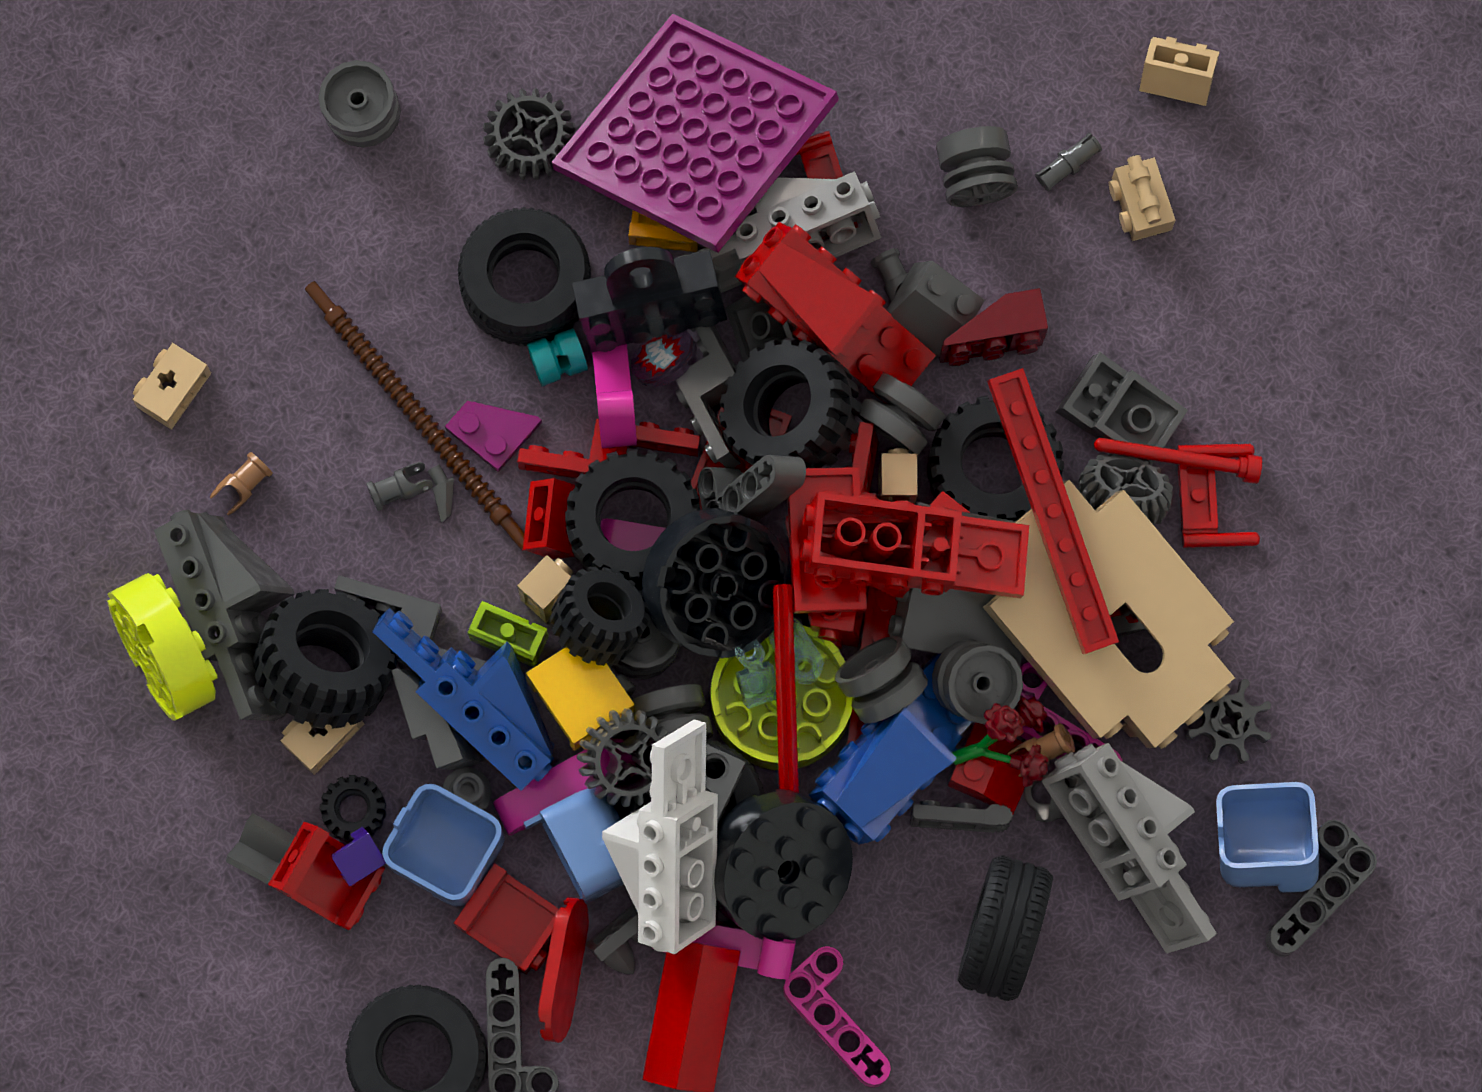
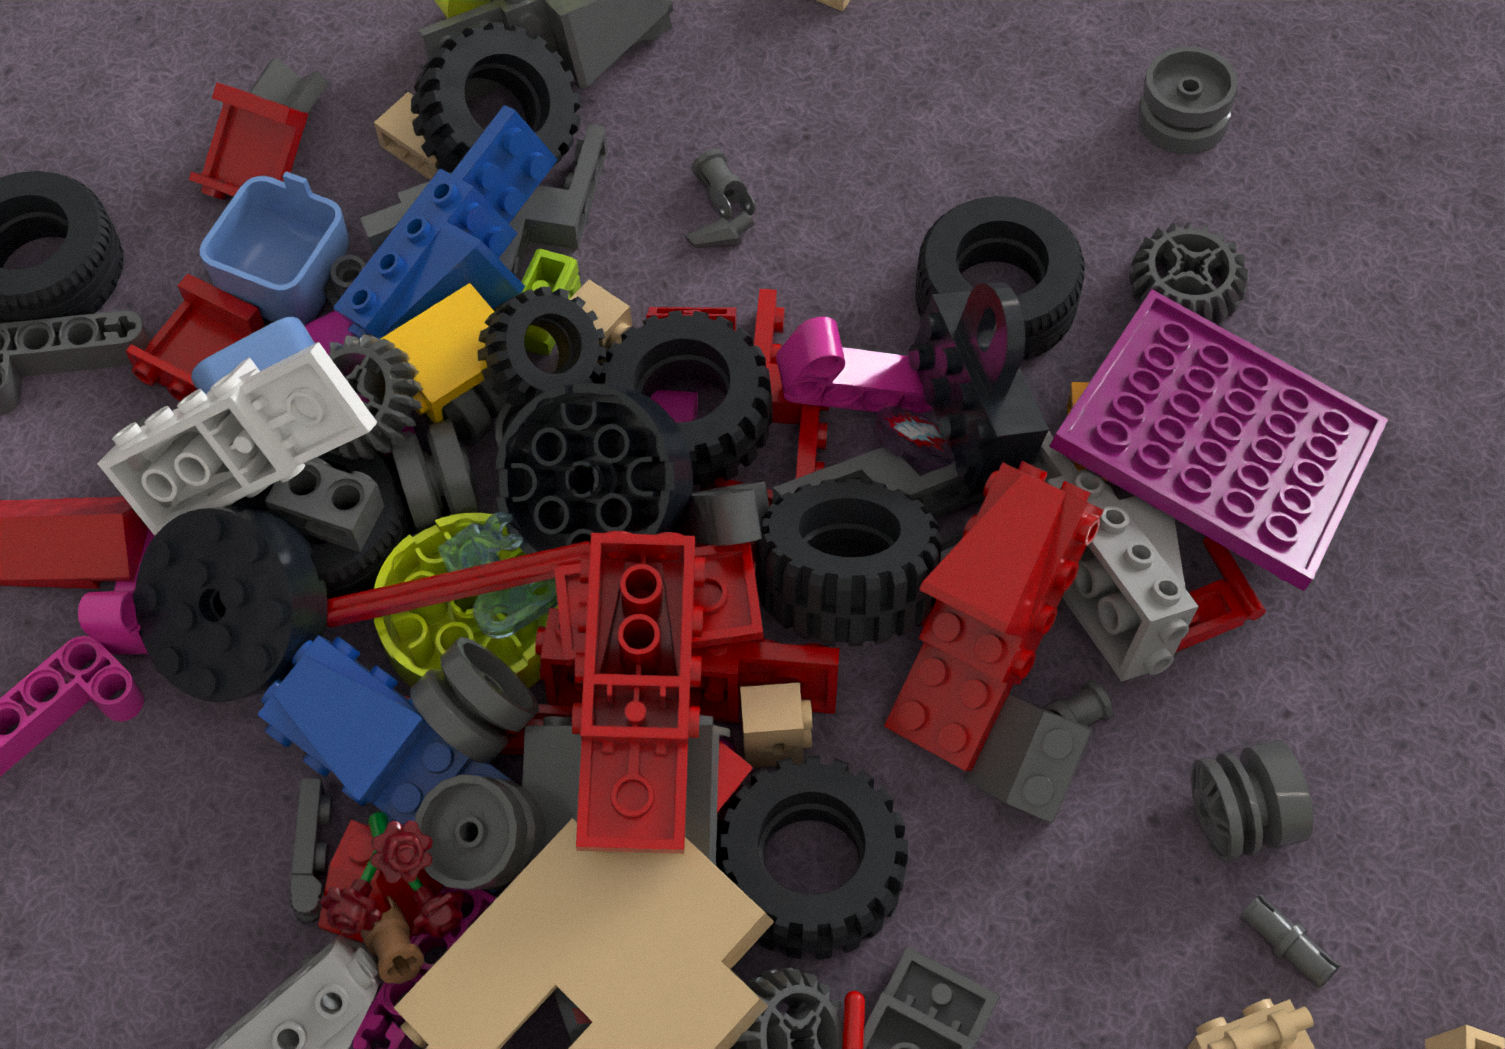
camera: 90 degrees right, 15 degrees down
(244, 480) = (719, 45): medium nougat piece -> none
(336, 317) = (923, 112): reddish brown hose -> none
(348, 787) = (339, 158): black tyre -> none
(358, 857) = (261, 158): dark purple panel -> none
(492, 431) = (802, 274): magenta wing -> none
(548, 366) = (894, 318): teal wheel -> none
(563, 969) = (110, 385): red tile -> none
(901, 413) = (862, 711): dark grey wheel -> none
(1005, 928) = (124, 891): black tyre -> none
(1007, 325) = (1015, 844): dark red slope -> none
(1052, 511) = (709, 885): red plate -> none

